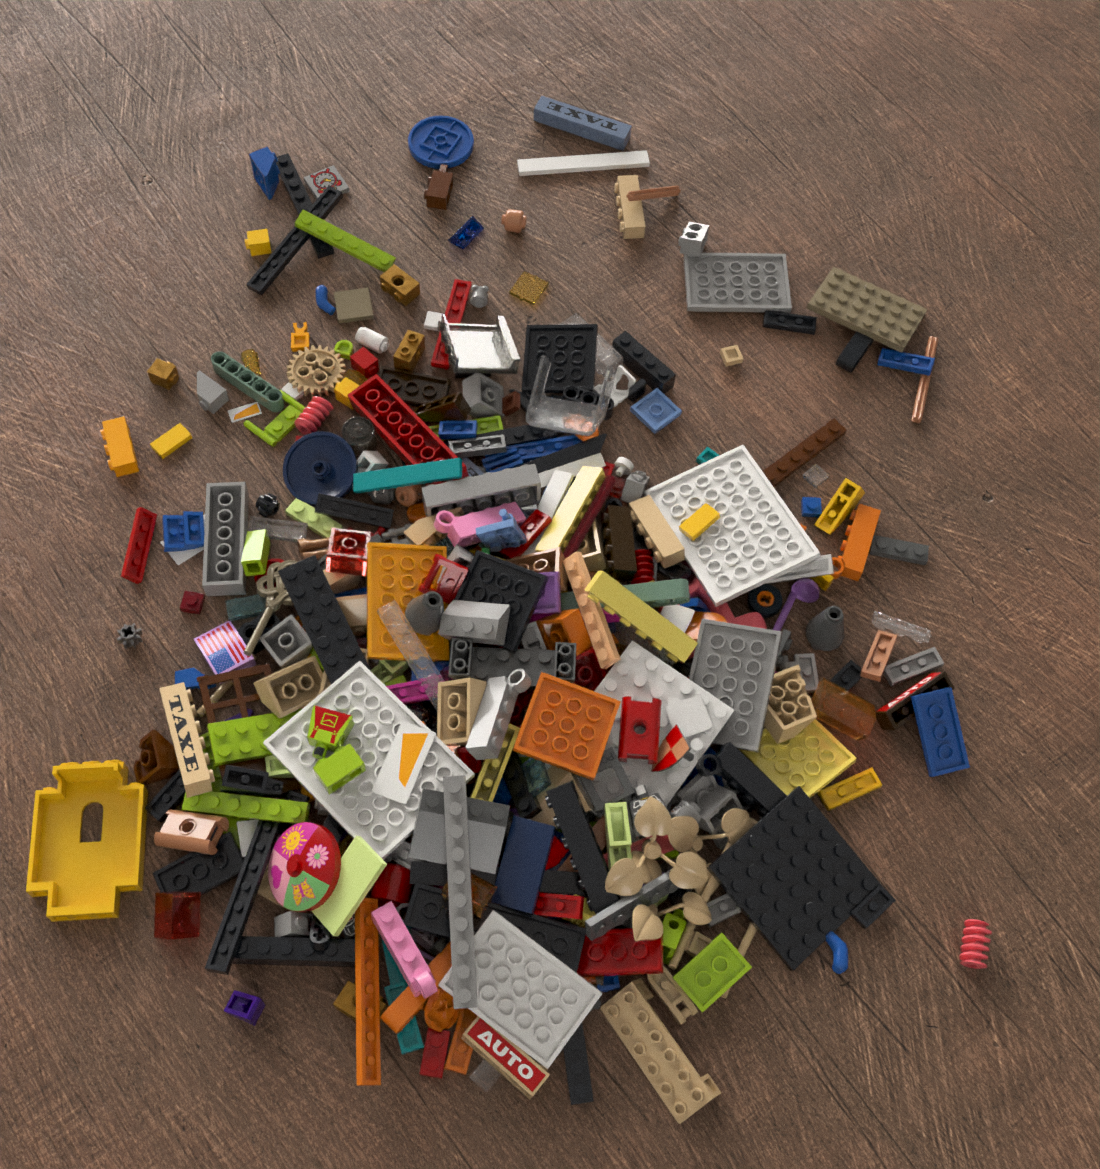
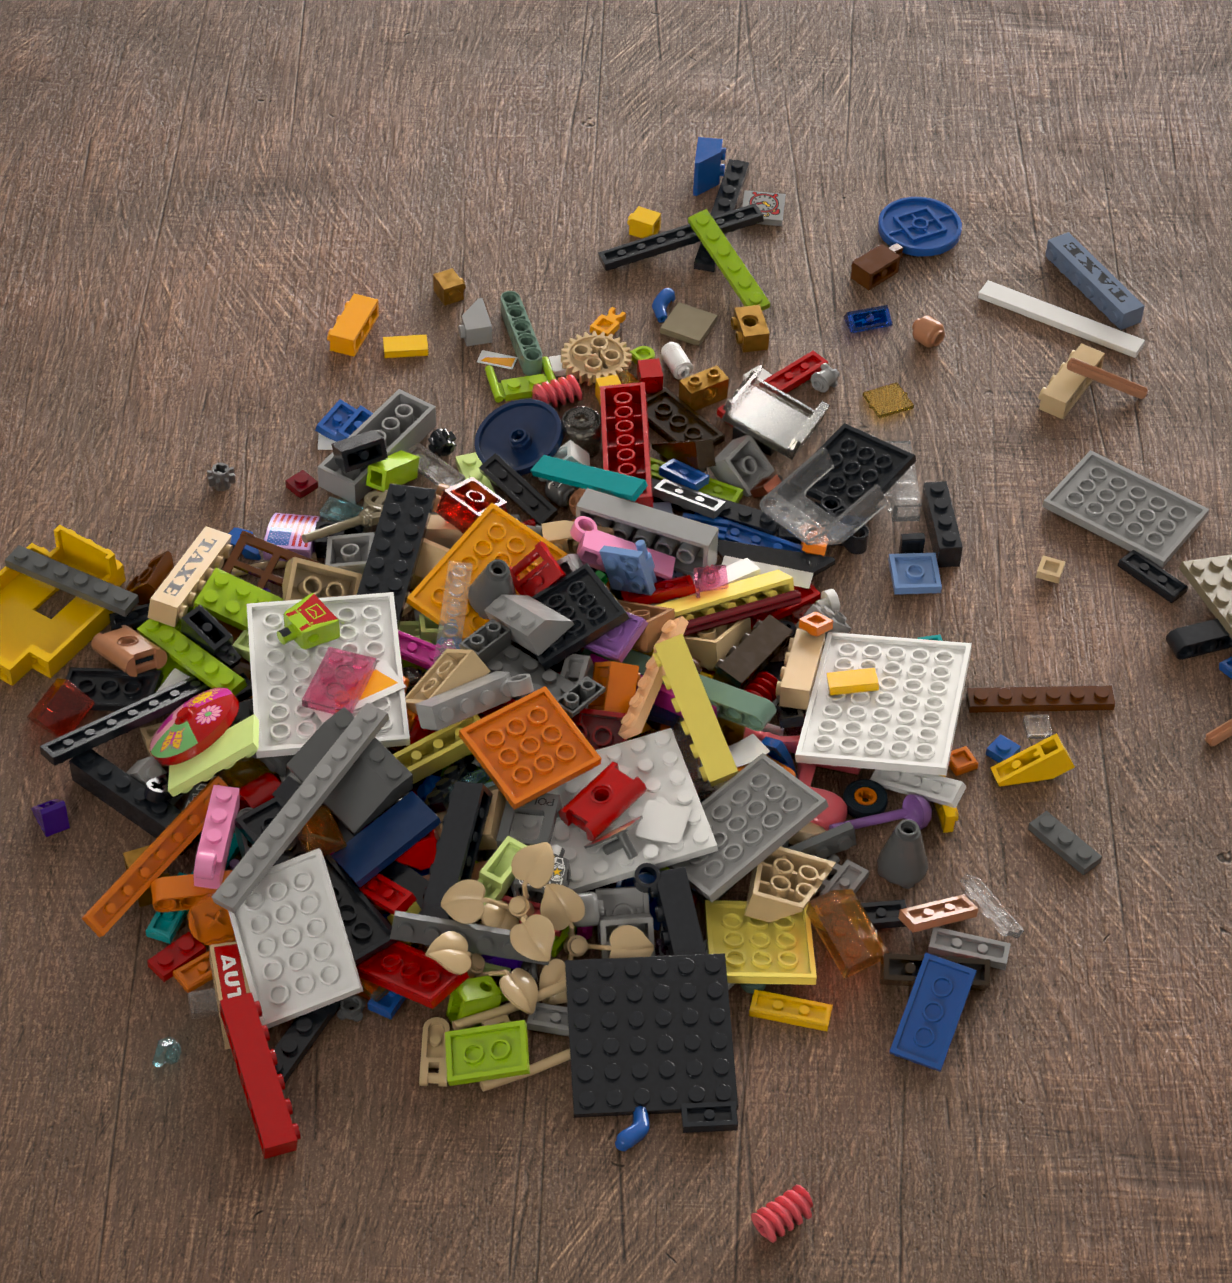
camera: 40 degrees right, 15 degrees down
(96, 803) = (72, 580): none -> dark grey plate
(139, 545) = (296, 411): red plate -> none
(228, 555) = (359, 451): none -> black brick
(251, 361) = (541, 319): clear yellow cone -> none
(339, 768) = (290, 657): lime brick -> none
(389, 763) = (339, 681): none -> clear pink plate
(497, 1134) = (166, 1052): none -> clear light blue plate
(554, 504) = (710, 578): none -> clear pink bracket
(582, 1110) = (258, 1075): none -> red brick
(618, 395) = (882, 531): white piece -> none
(642, 493) = (816, 624): none -> orange plate
(658, 1052) = (374, 1087): tan bracket -> none
(693, 239) = (1112, 442): light grey brick -> none
(858, 543) = (1016, 808): orange hinge -> none

